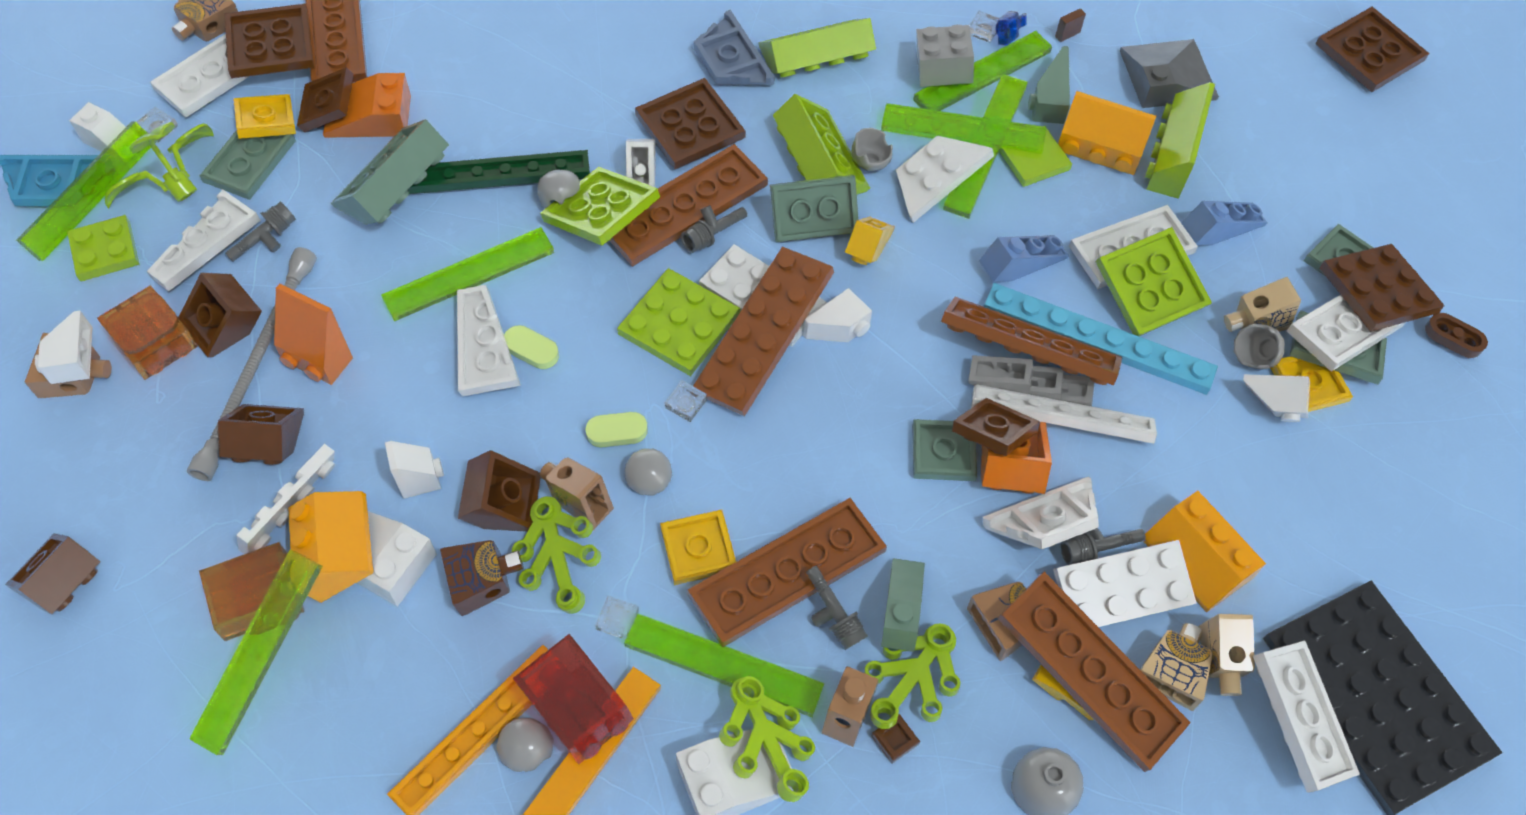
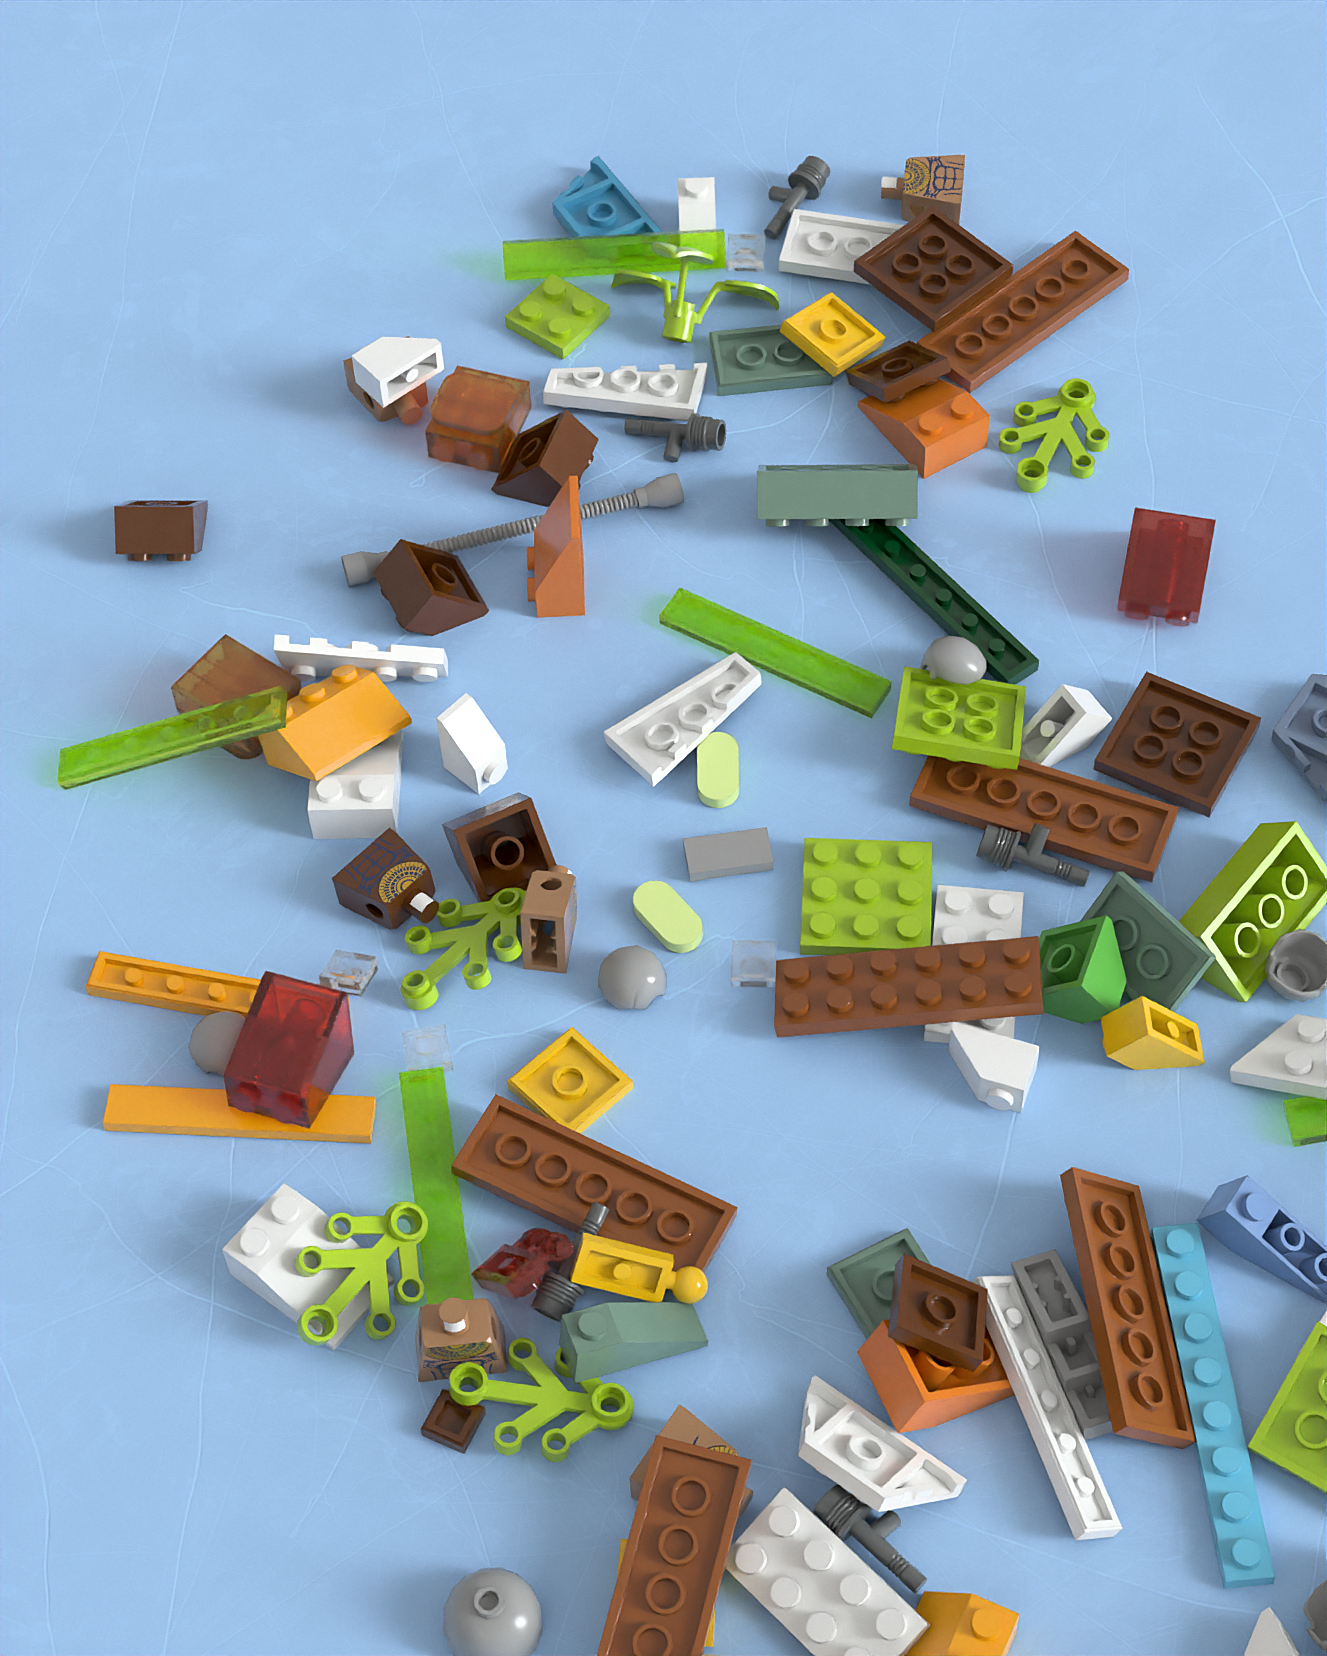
camera: 65 degrees right, 5 degrees down
(135, 68) = (805, 183): none -> dark grey piece
(419, 36) = (1072, 400): none -> lime plant
(527, 634) = (349, 972): none -> clear plate
(574, 59) = (1165, 566): none -> clear red slope
(596, 374) = (728, 854): none -> light grey tile
(806, 236) = (1081, 970): none -> bright green slope
(825, 643) = (518, 1268): none -> clear red plate
(865, 574) = (634, 1271): none -> yellow plate

